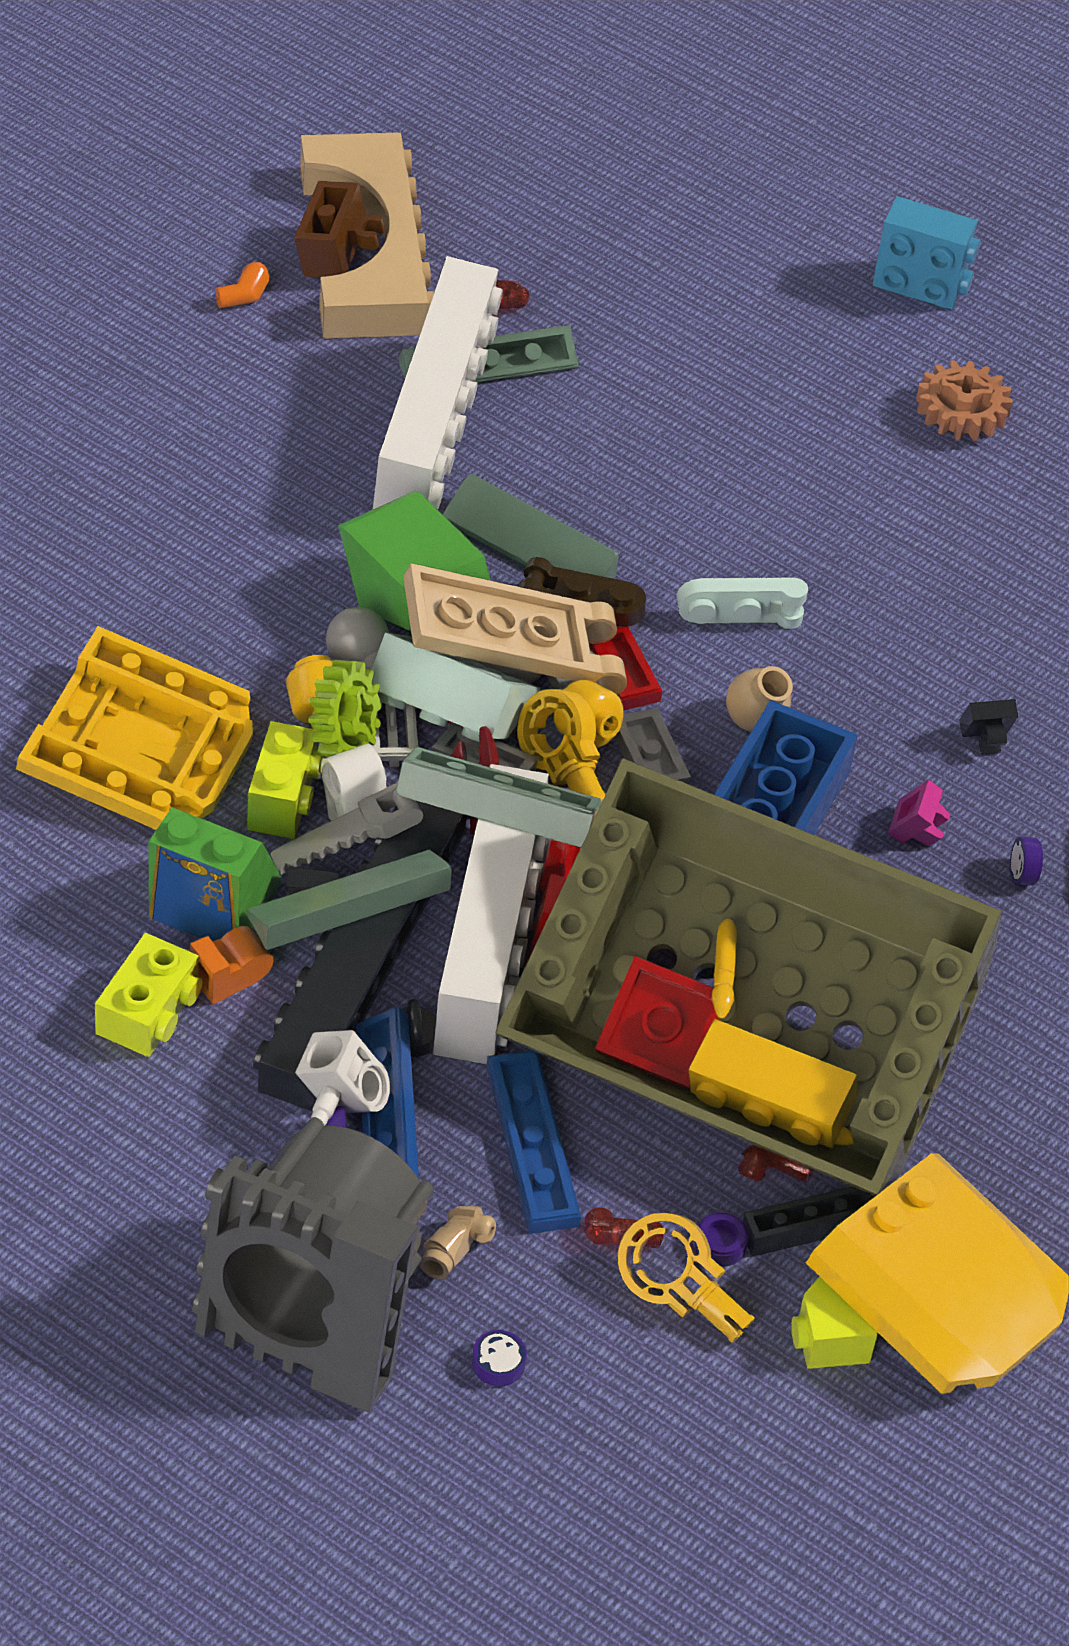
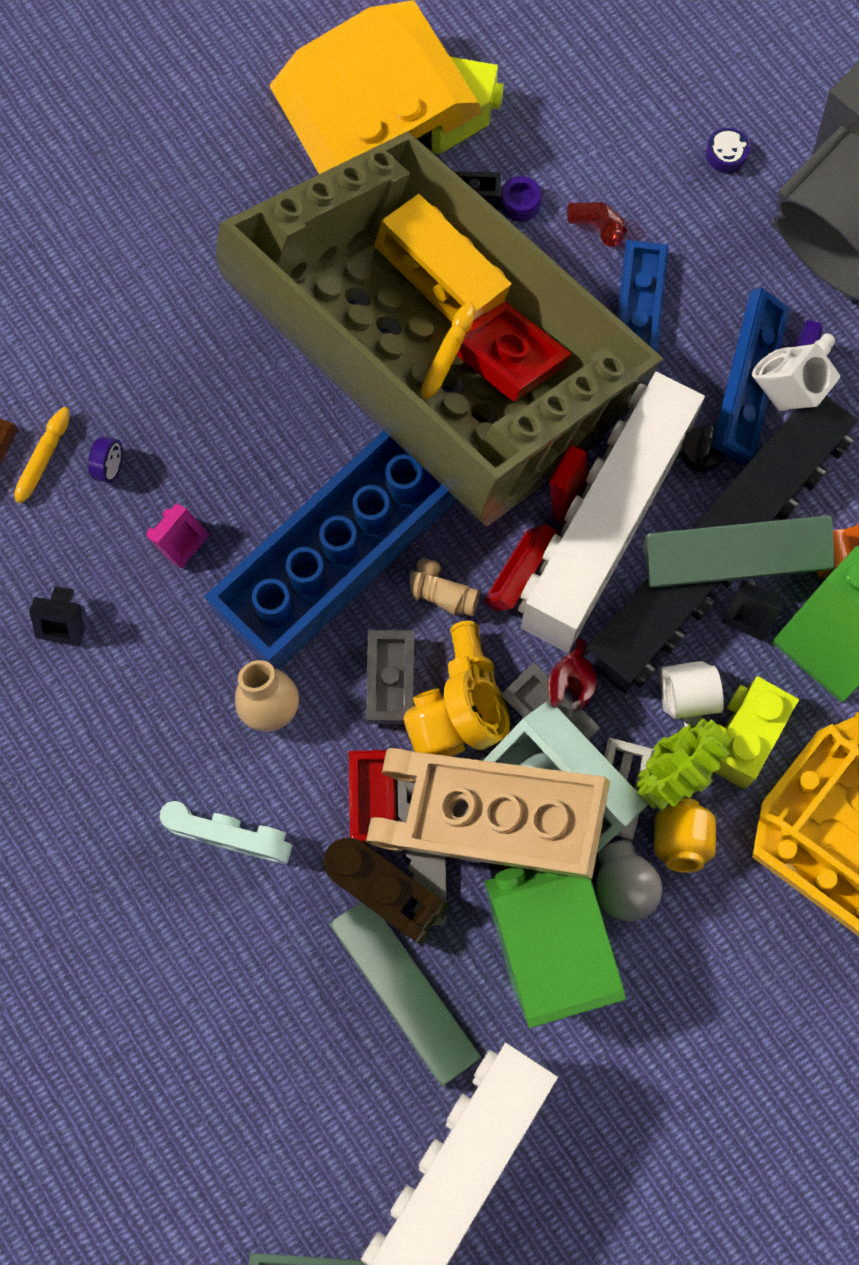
camera: 155 degrees left, 25 degrees up
(352, 827) = (708, 643): light grey piece -> none
(454, 1240) = (738, 245): tan arm -> none
(497, 796) = (583, 584): sand green slope -> none
(708, 1299) = (567, 155): yellow pin -> none

